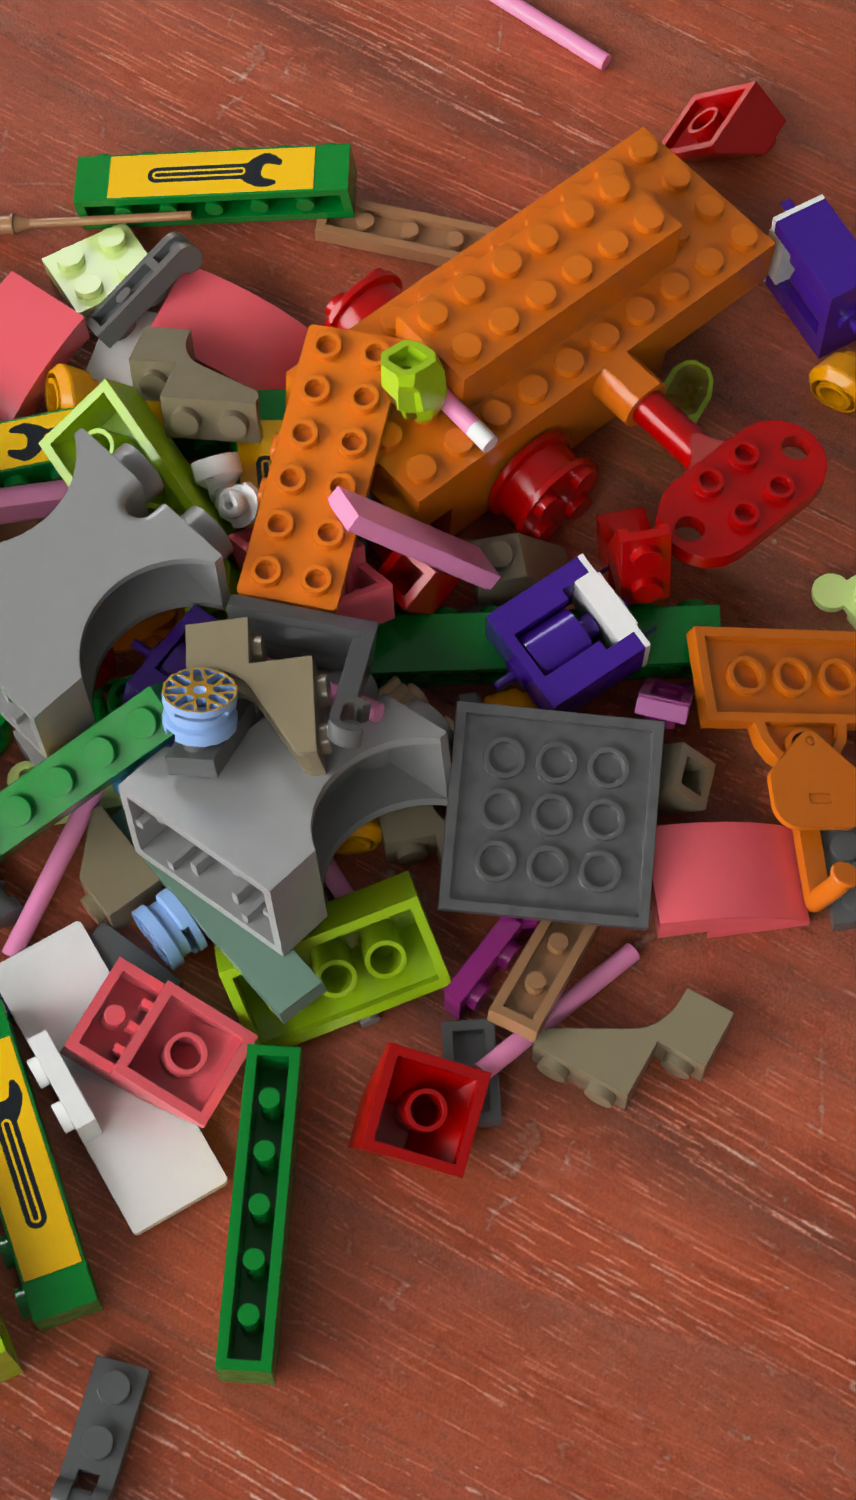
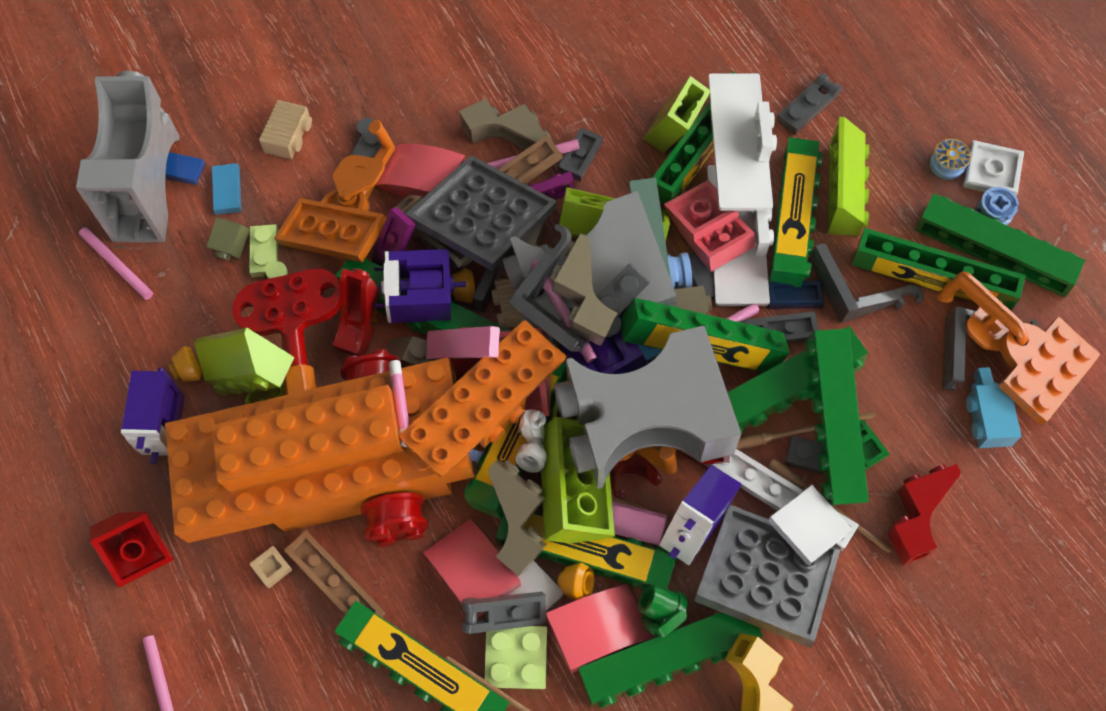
camera: 150 degrees left, 0 degrees up
(175, 1209) = (741, 142): none -> white bracket
(200, 711) = (621, 288): light blue wheel -> none
(326, 1214) = (677, 114): none -> lime brick
(414, 380) = (412, 399): lime rock -> none
(420, 1110) = (617, 138): red slope -> none
(505, 201) = (270, 567): none -> tan plate
(730, 376) = (241, 362): none -> lime slope

